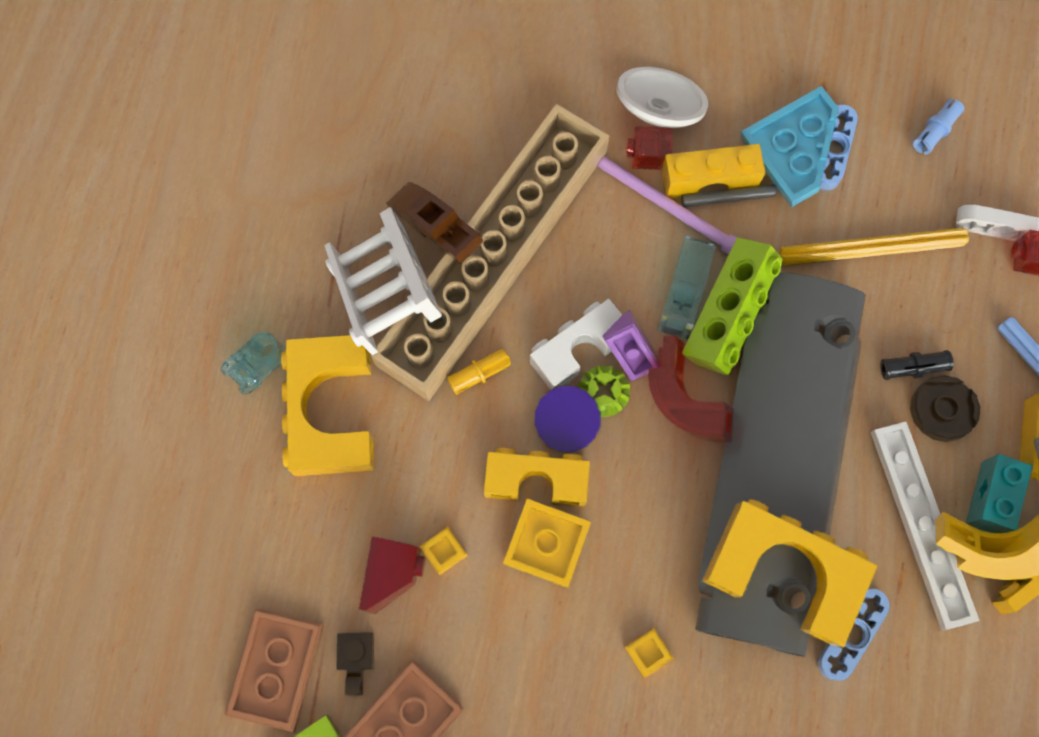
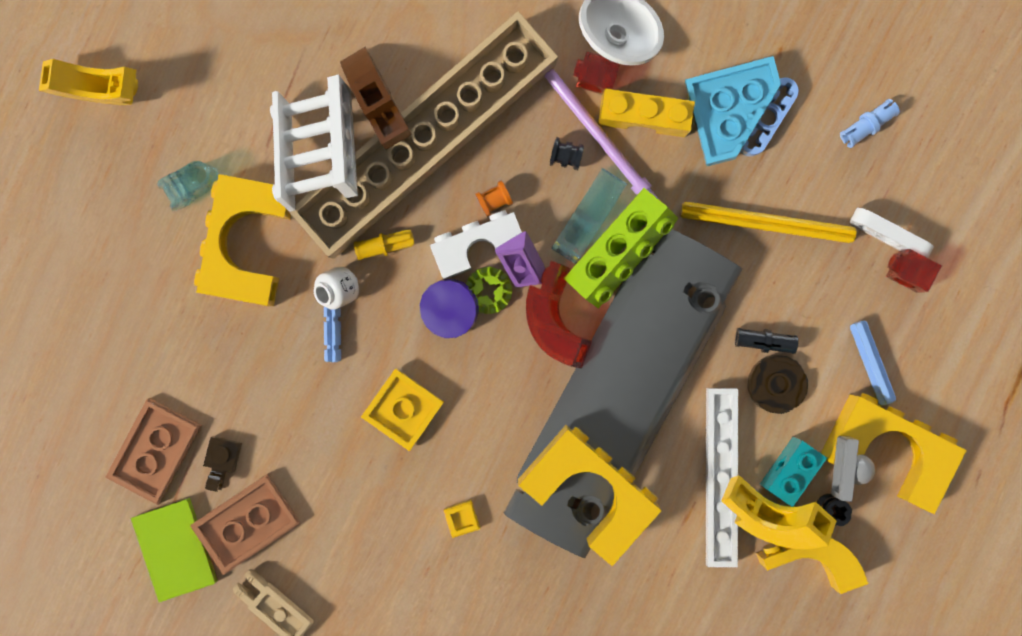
camera: 10 degrees right, 15 degrees up
(130, 288) = (89, 84): none -> yellow arch
(389, 573) = (261, 400): dark red slope -> none
(440, 427) = (336, 288): none -> white head
(443, 550) = (315, 391): yellow tile -> none
(447, 480) = (332, 335): none -> light blue axle
(508, 470) = (383, 341): yellow arch -> none
(582, 294) = (494, 198): none -> orange bush
(644, 231) = (566, 154): none -> black bush
(728, 195) = (655, 138): dark grey bar -> none
(868, 632) = (633, 561): light blue beam -> none

